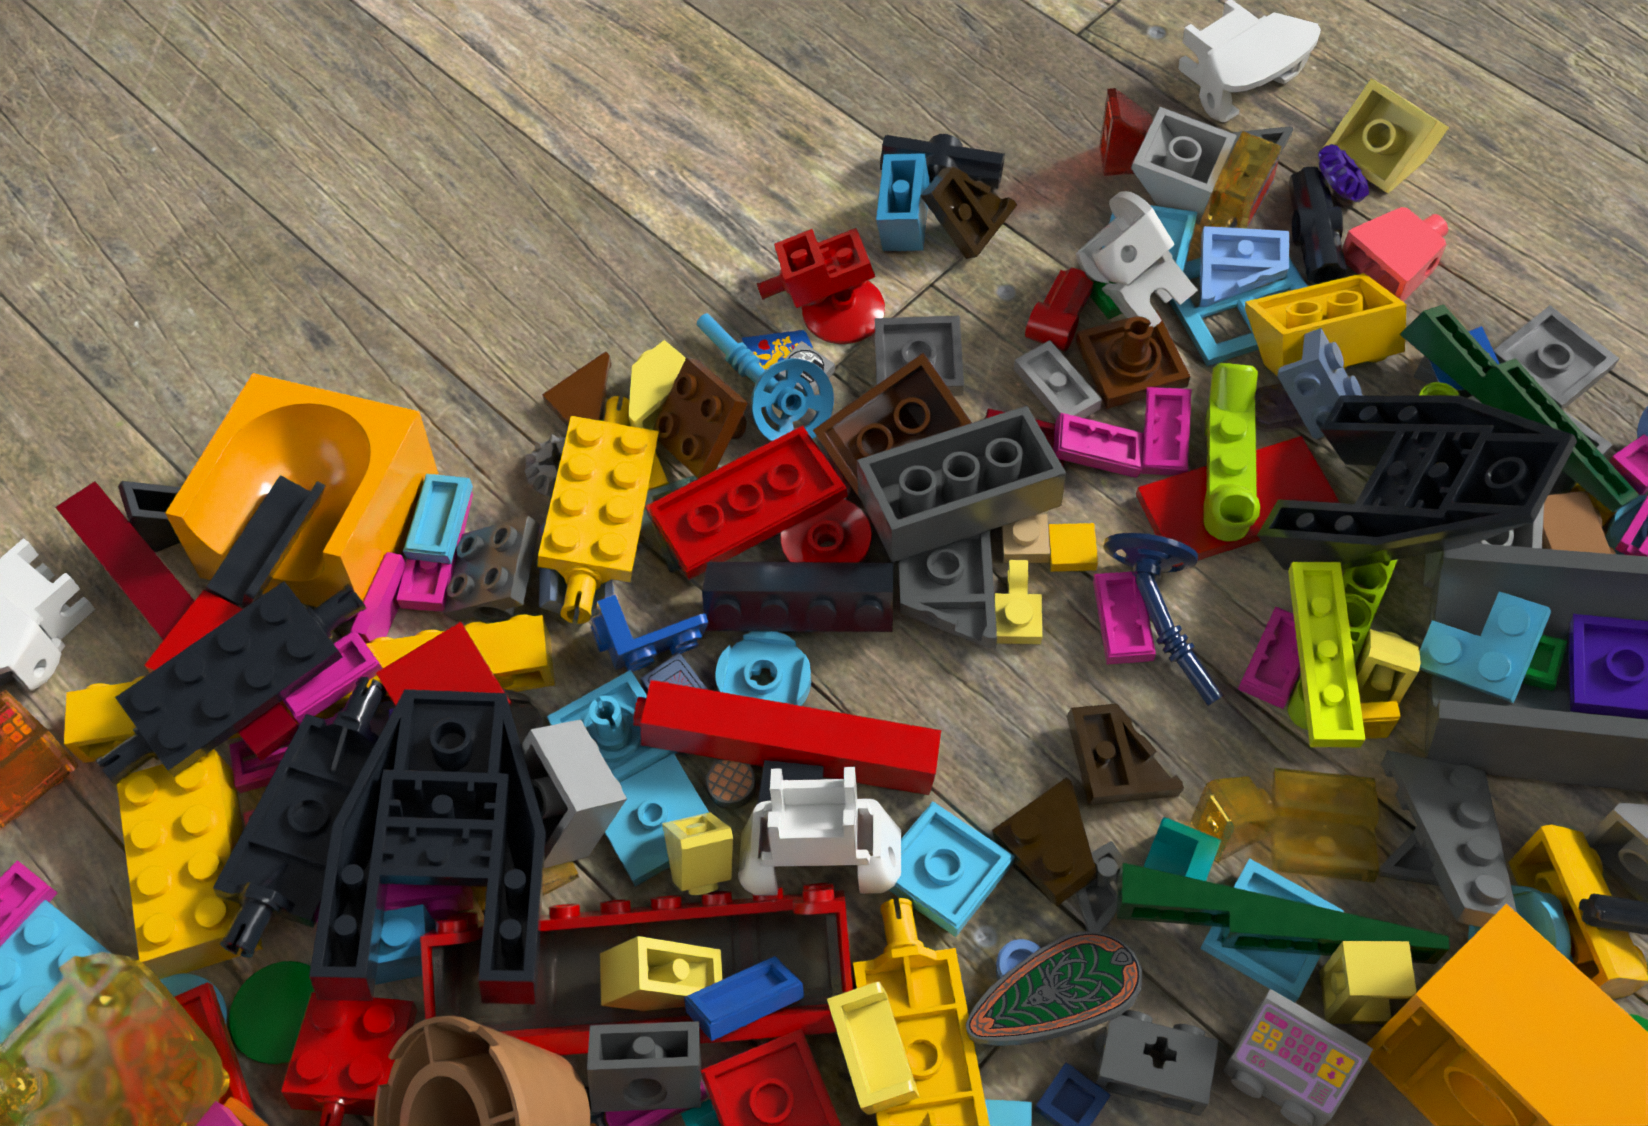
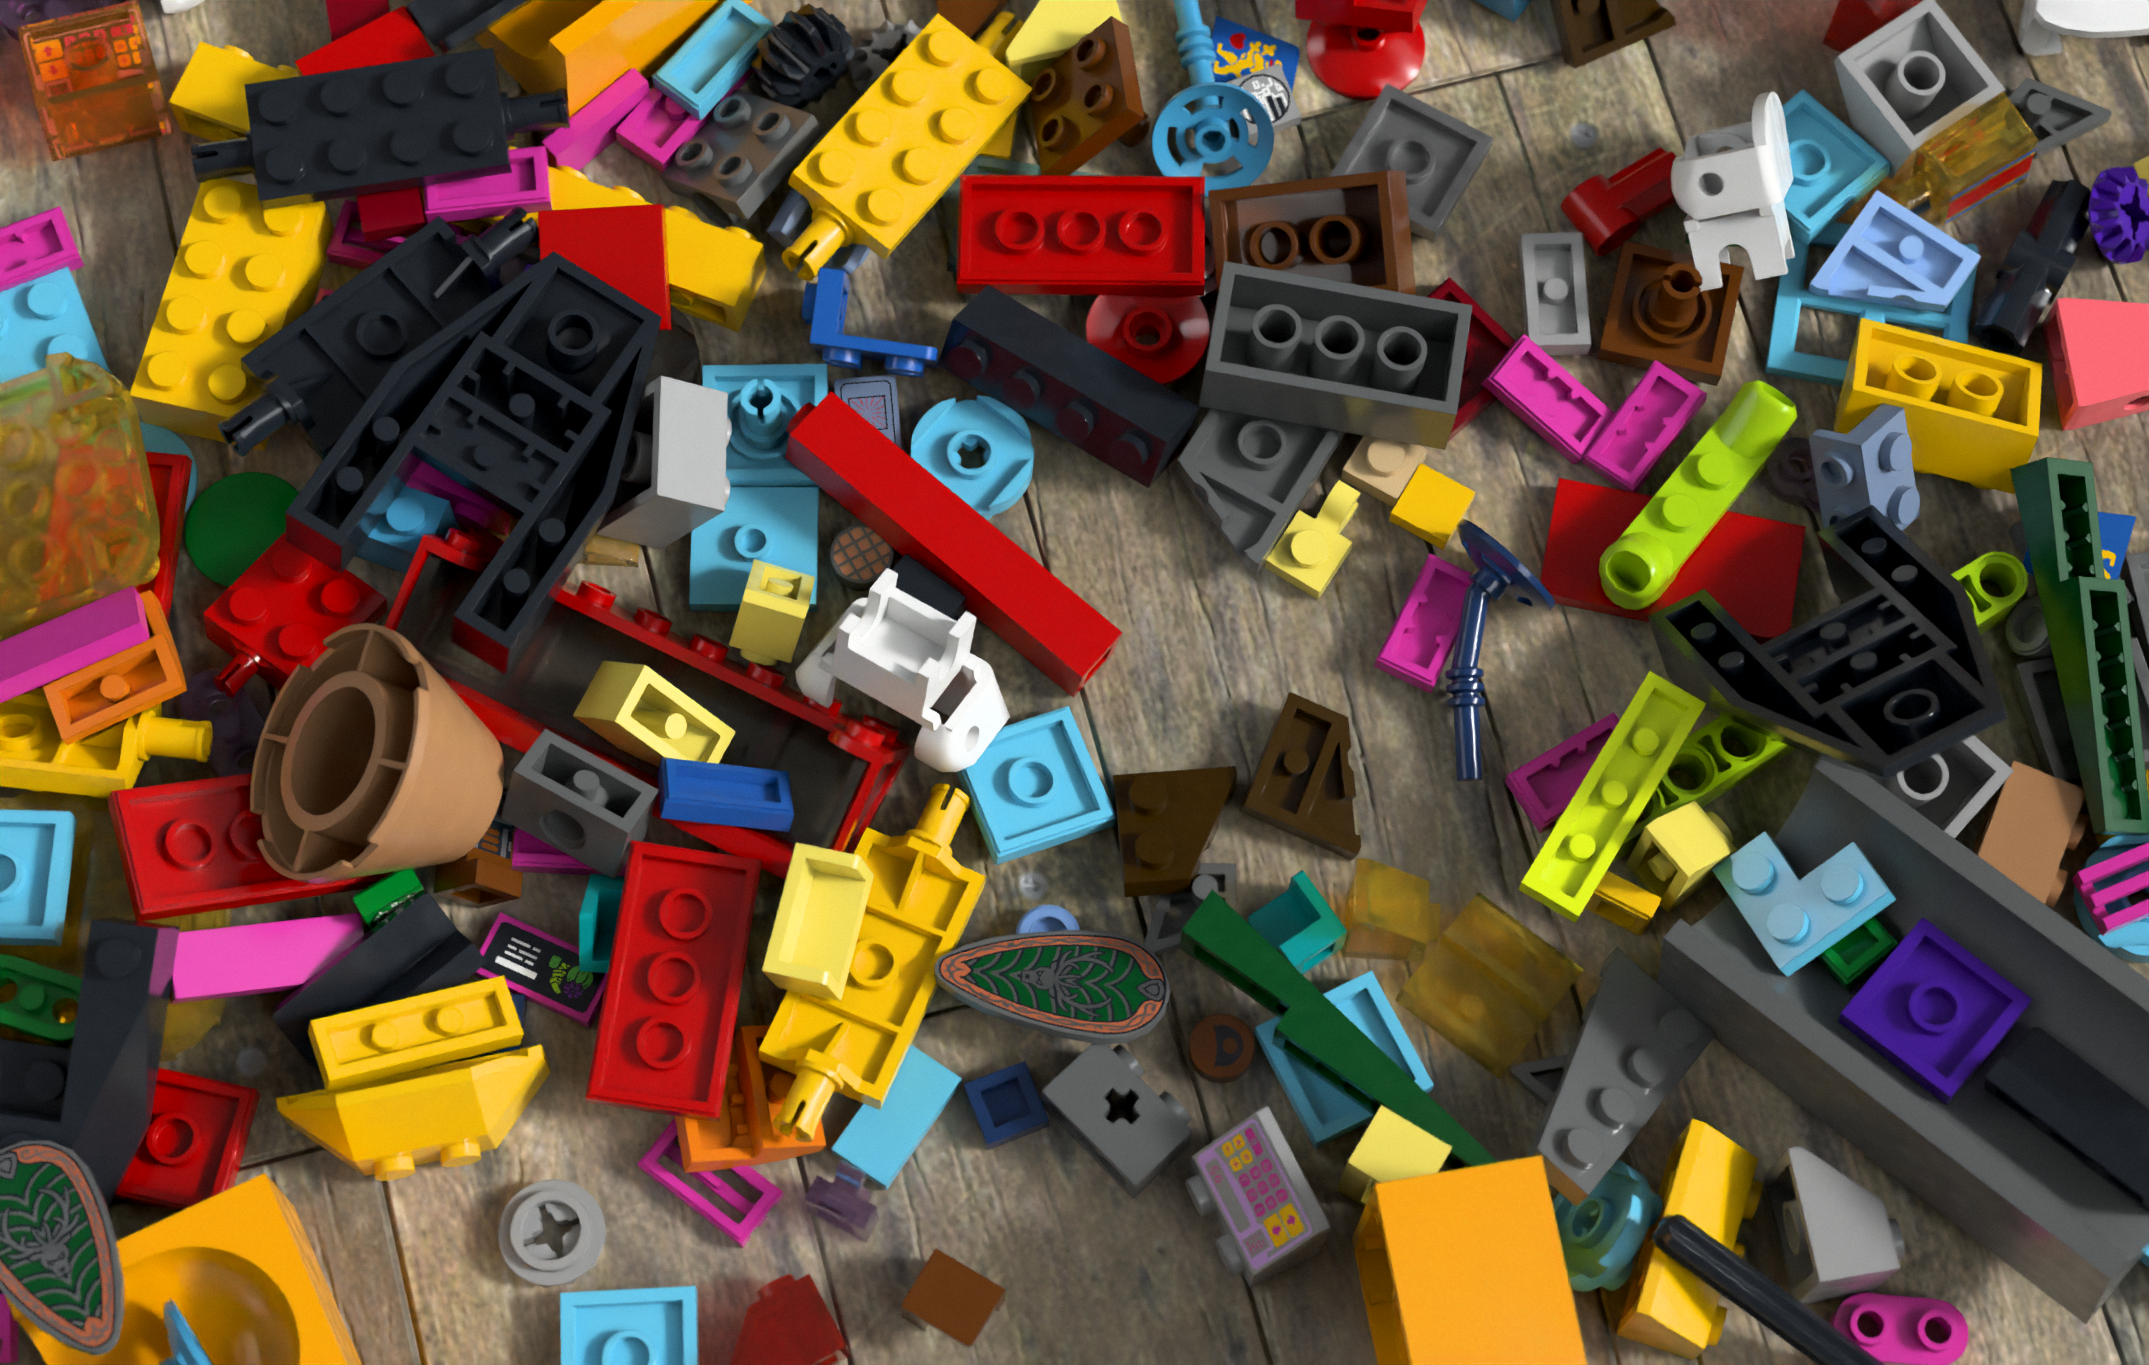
camera: 25 degrees right, 10 degrees up
(497, 487) = (803, 56): none -> black gear
(1186, 972) = (1221, 1048): none -> reddish brown tile

